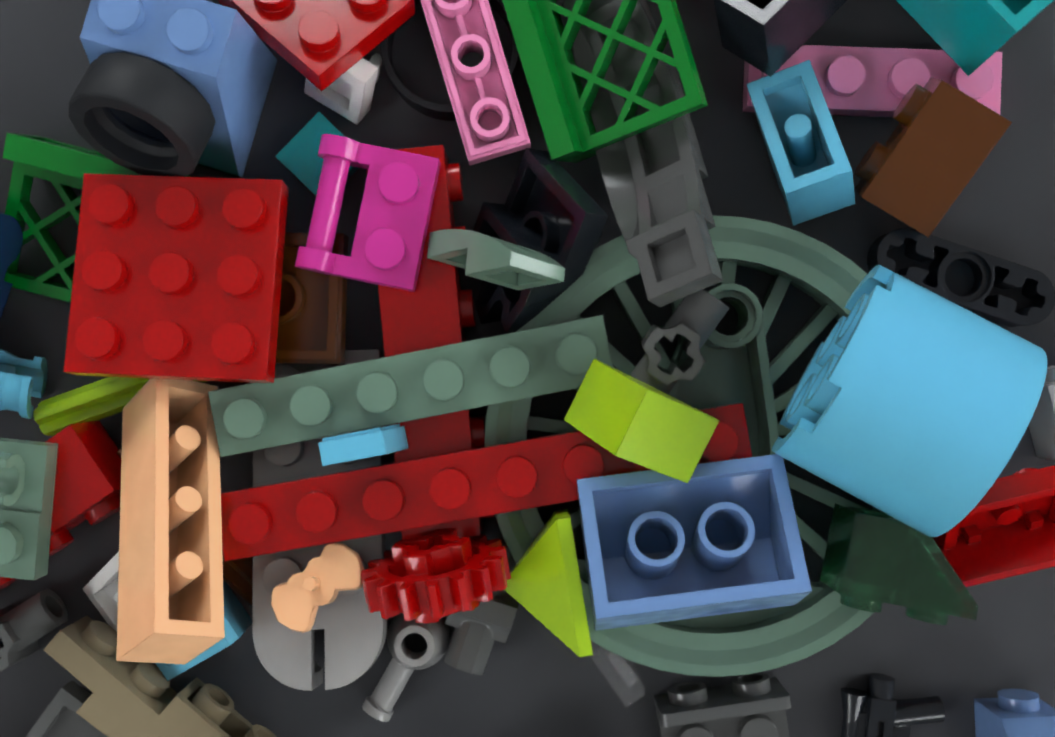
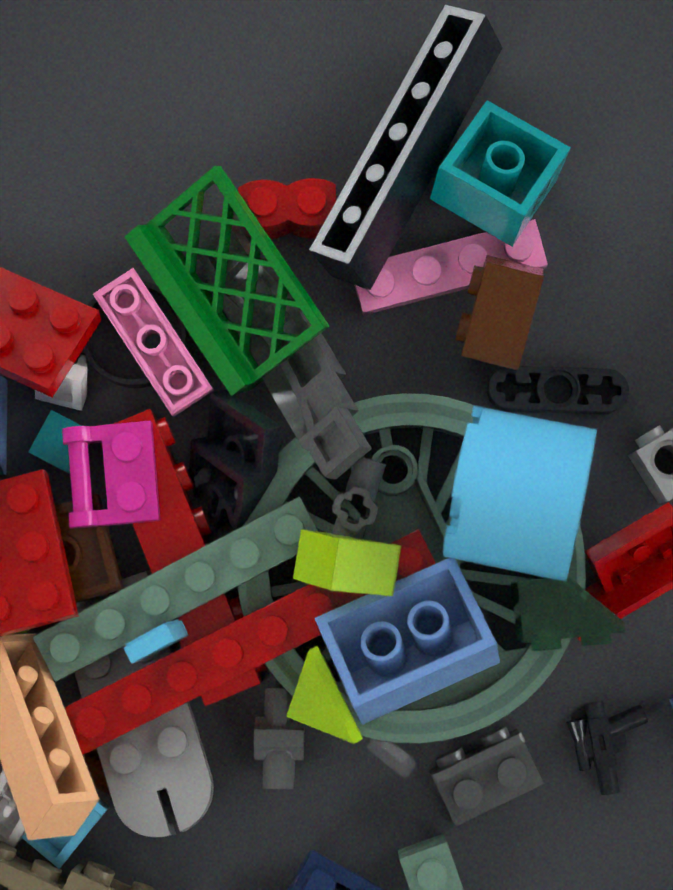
camera: 20 degrees left, 5 degrees down
(298, 600) = (152, 754): light nougat piece -> none
(404, 662) = (234, 798): light grey bar -> none
(435, 576) = (235, 719): red gear -> none
(494, 259) = (209, 480): sand green slope -> none
(802, 143) = (408, 330): medium azure slope -> none

